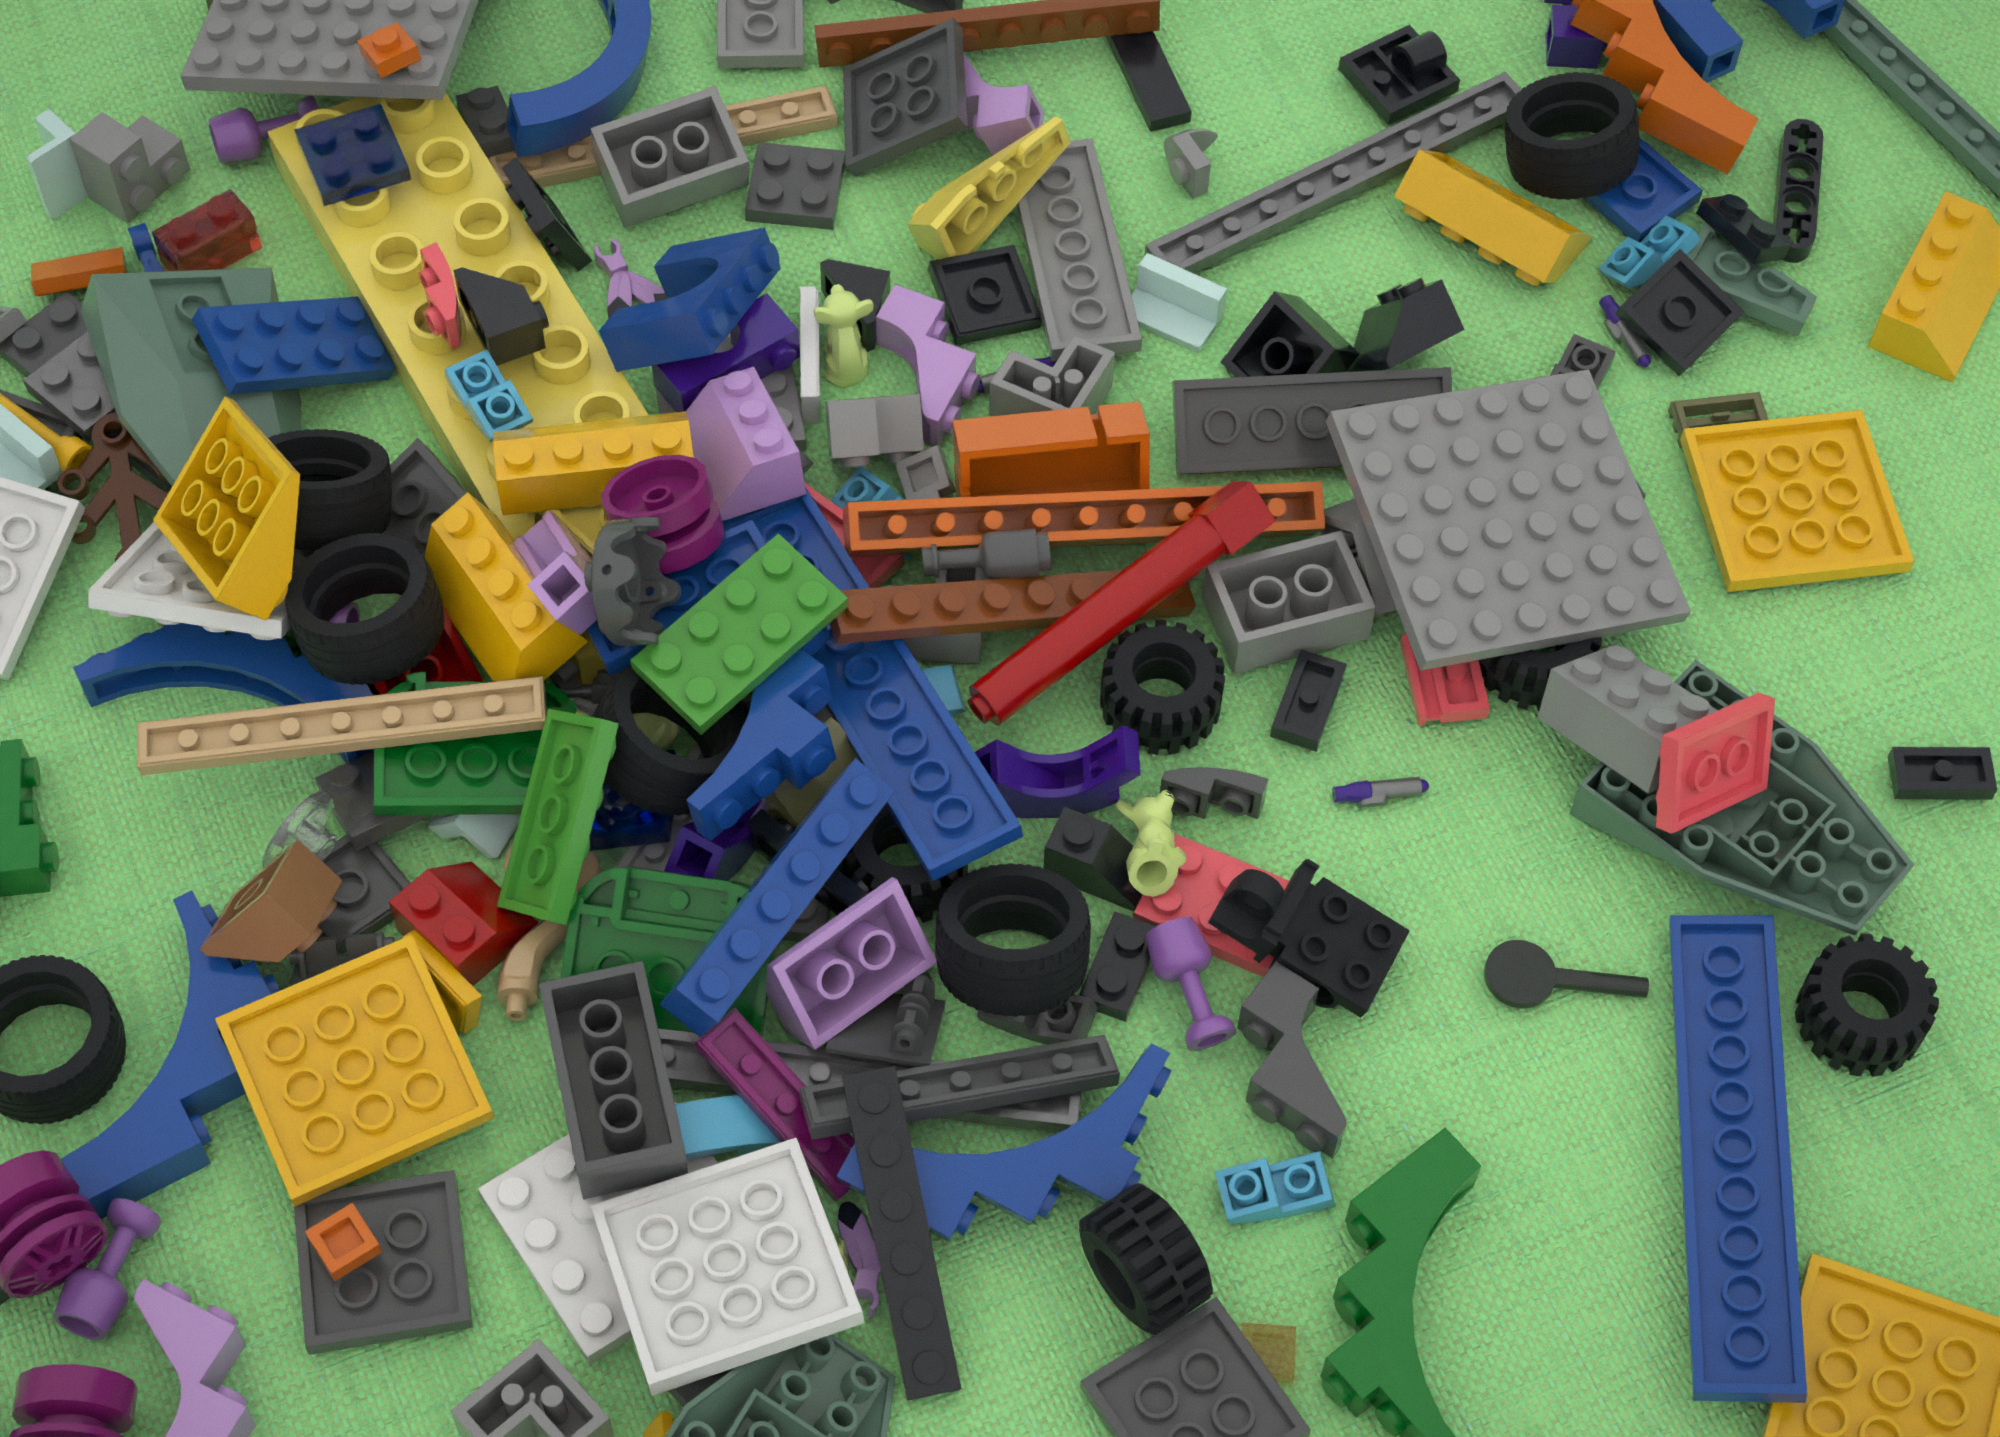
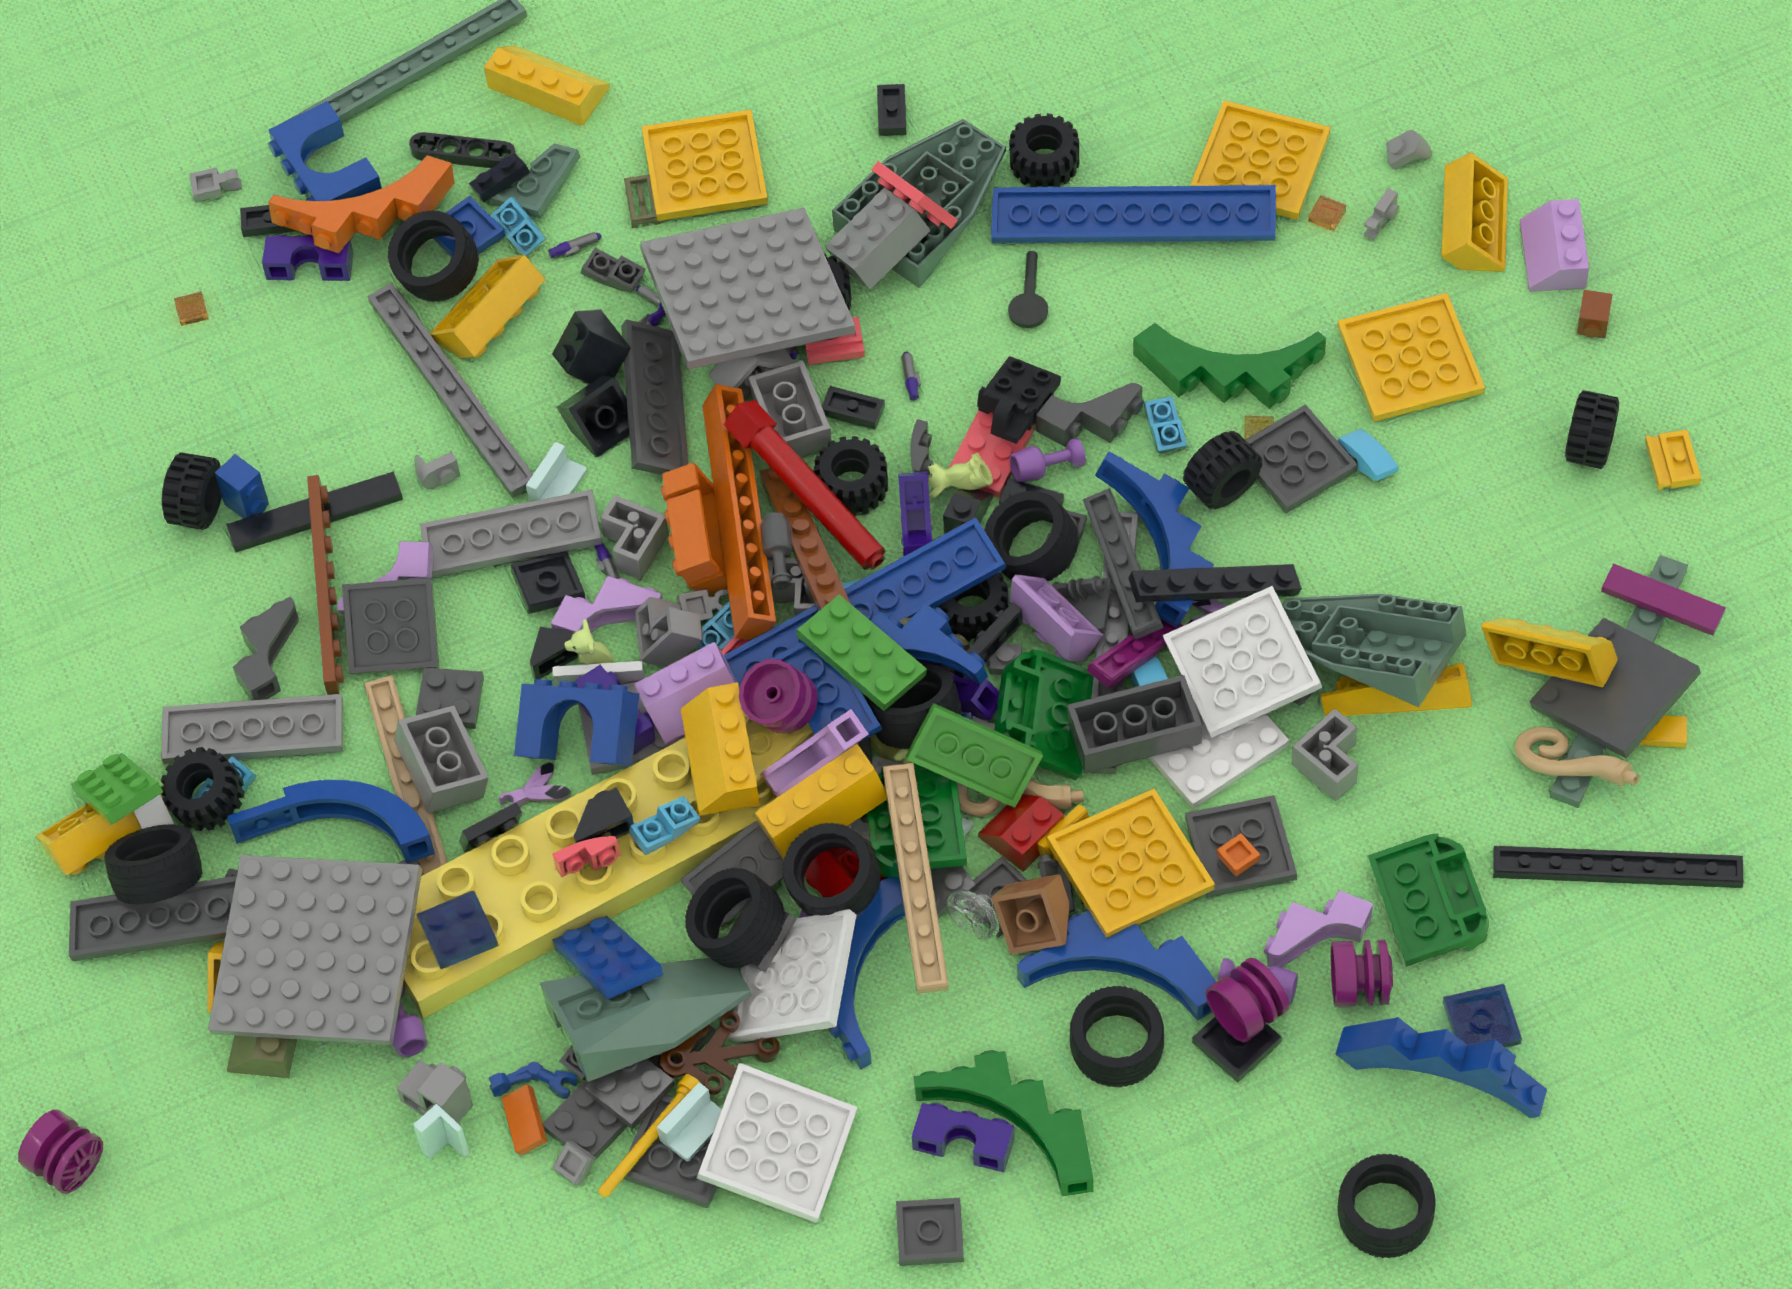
camera: 85 degrees left, 0 degrees up
(208, 236) = (501, 1038): clear red brick -> none
(235, 513) = (775, 933): yellow slope -> none
(389, 50) = (390, 894): orange plate -> none
(621, 578) = (840, 698): dark grey plate -> none
(777, 898) = (1027, 636): blue brick -> none
(974, 204) = (490, 586): light yellow wedge -> none
(1400, 73) = (363, 355): black plate -> none
(1679, 312) = (569, 211): black plate -> none

